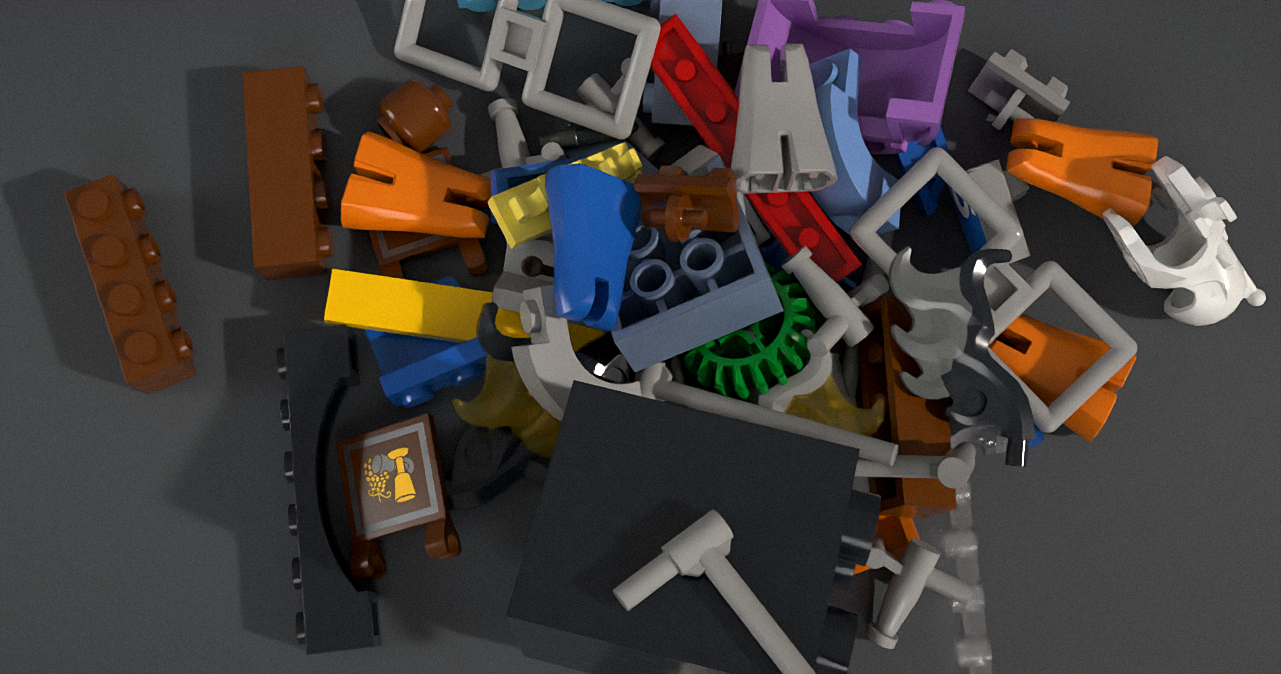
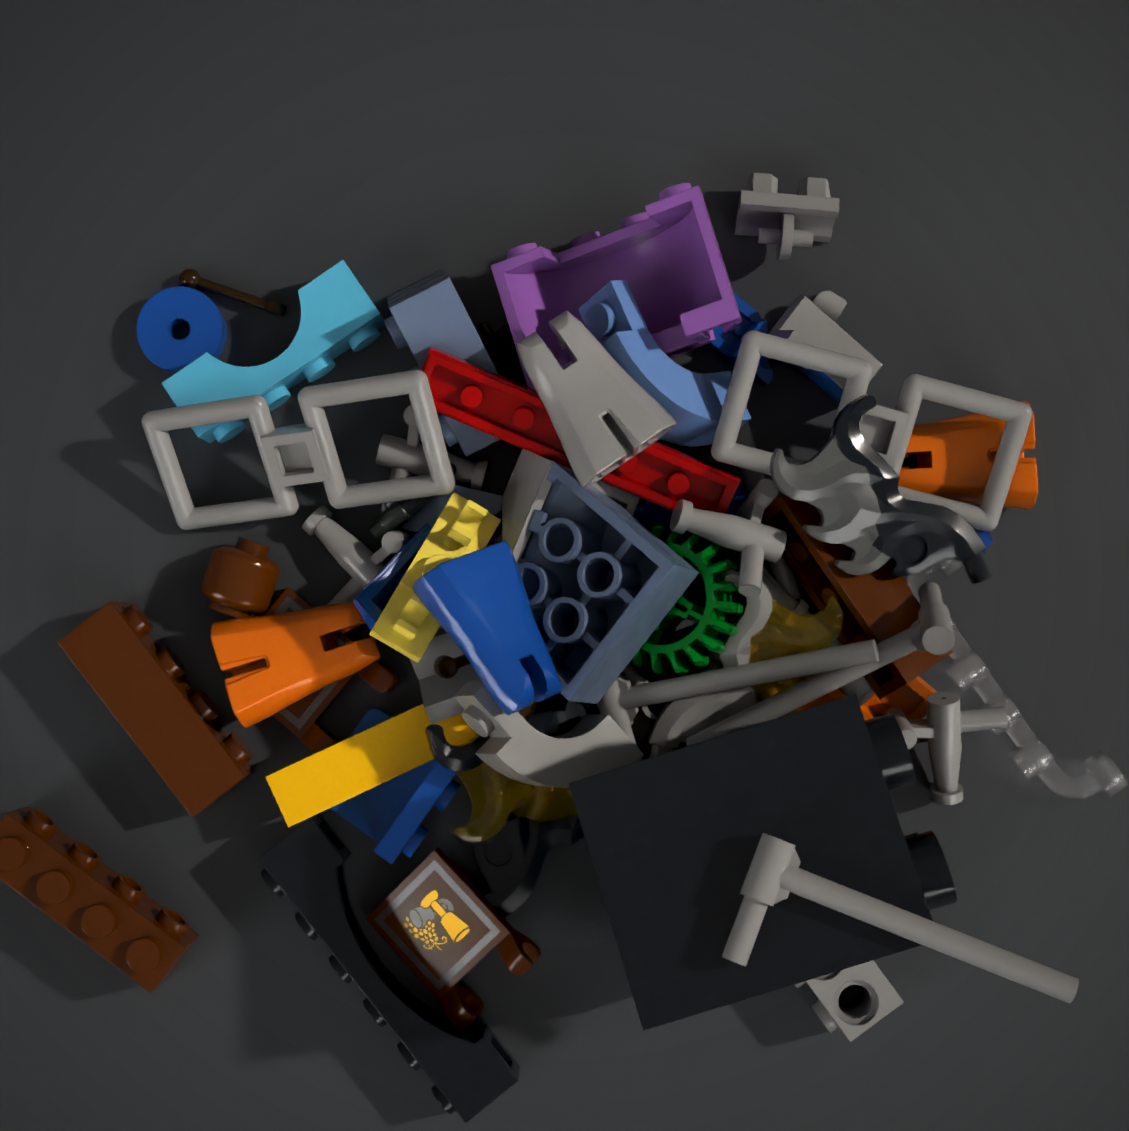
camera: 25 degrees left, 10 degrees up
(688, 202) = (556, 537): reddish brown hips -> none
(1085, 165) = (889, 250): orange piece -> none
(1196, 254) = (1055, 289): white helmet -> none

